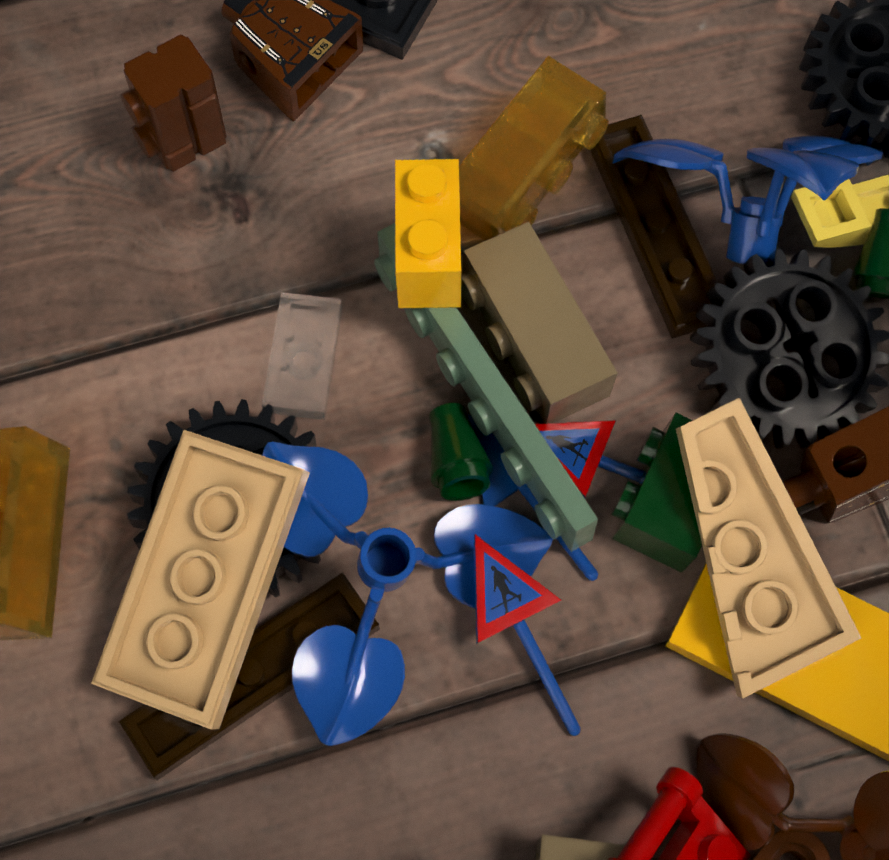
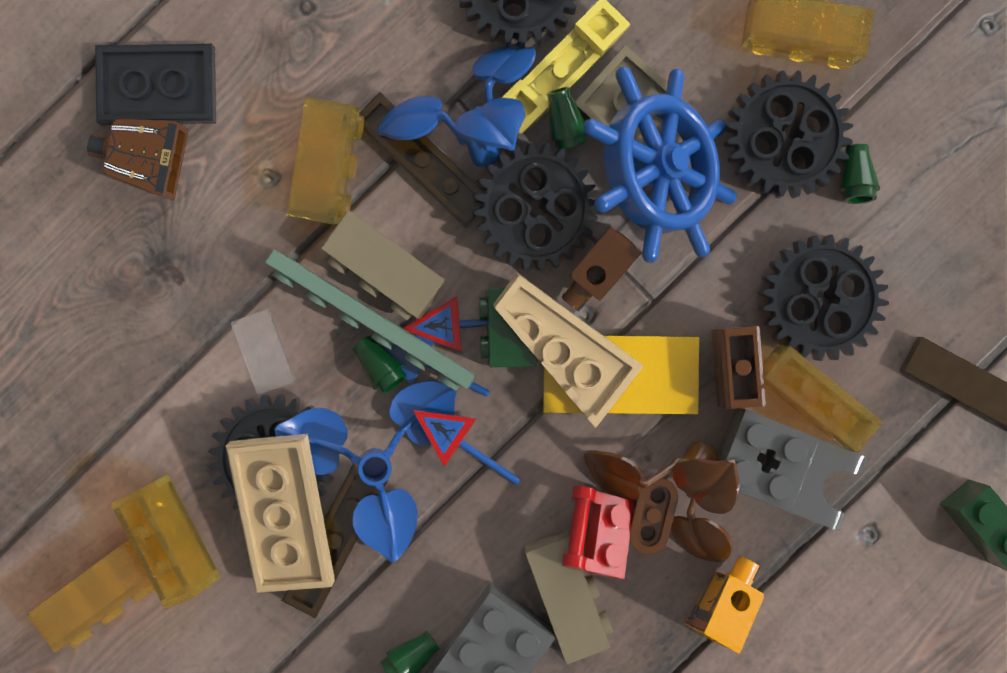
camera: 30 degrees left, 20 degrees up
(173, 103) = (99, 242): reddish brown brick -> none
(427, 233) = (295, 258): yellow brick -> none

